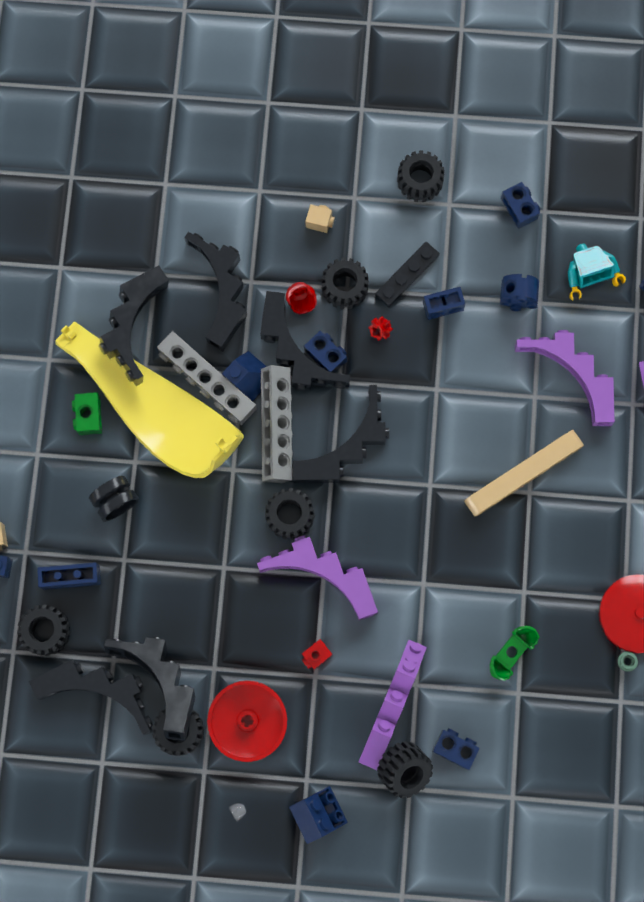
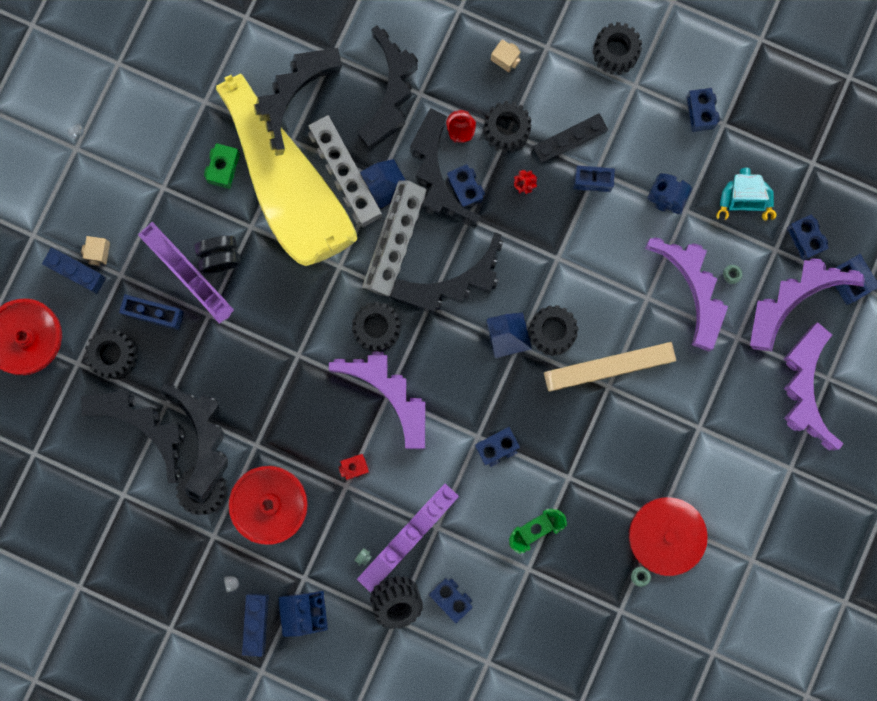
camera: 15 degrees right, 5 degrees up
(90, 526) = (186, 272): none -> medium lavender arch
(276, 842) = (255, 625): none -> dark blue brick
(356, 739) = (363, 557): none -> sand green plate
(416, 477) = (508, 334): none -> dark blue slope
(442, 583) = (495, 442): none -> dark blue brick
(462, 442) = (563, 317): none -> black tyre
(607, 341) = (732, 268): none -> sand green plate

